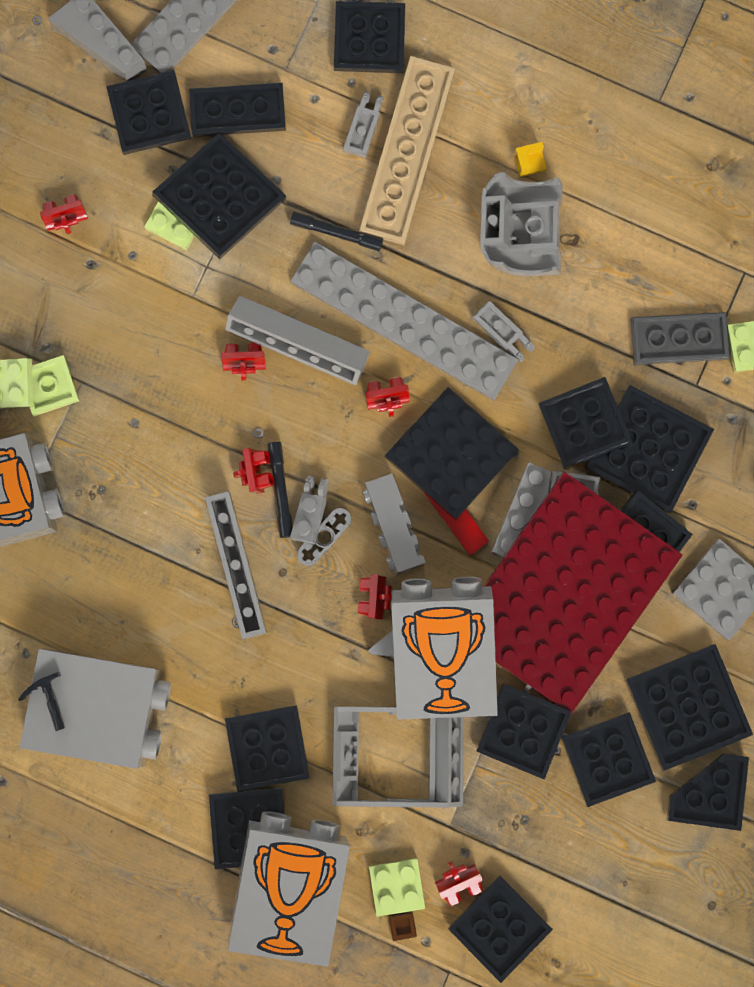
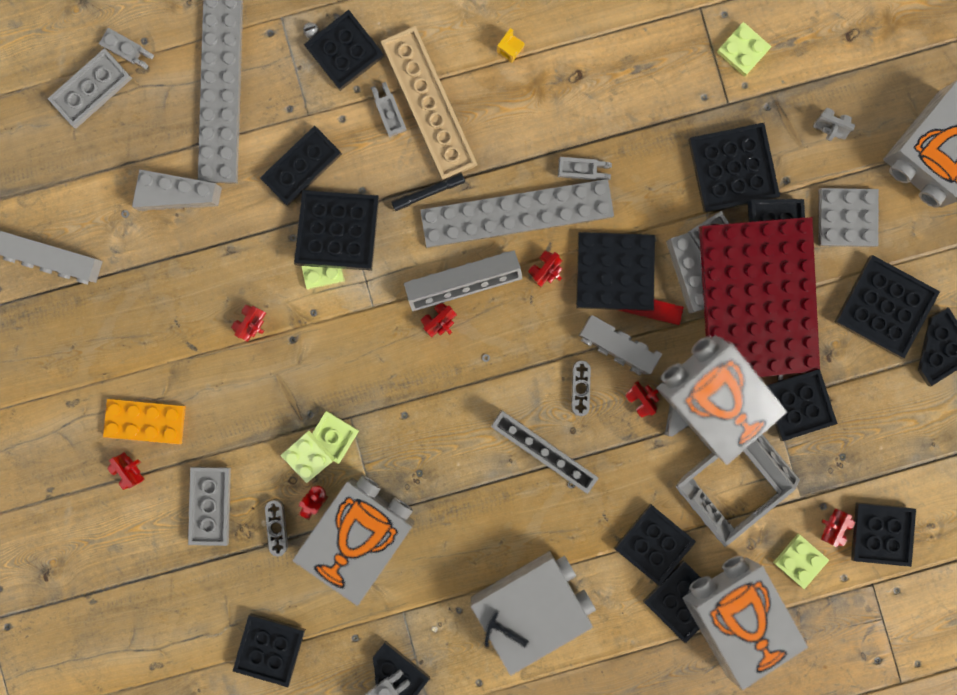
camera: 40 degrees left, 5 degrees up
(148, 112) = (246, 214): black plate -> none
(250, 470) = (502, 385): red hips -> none
(284, 517) = (513, 367): black piece -> none
(310, 511) = (560, 380): light grey hinge -> none
(402, 926) = (824, 581): reddish brown tile -> none
(521, 225) = (542, 91): light grey piece -> none
(585, 423) = (683, 184): black plate -> none
(608, 759) = (864, 379): black plate -> none
(680, 338) = (695, 82): dark grey tile -> none

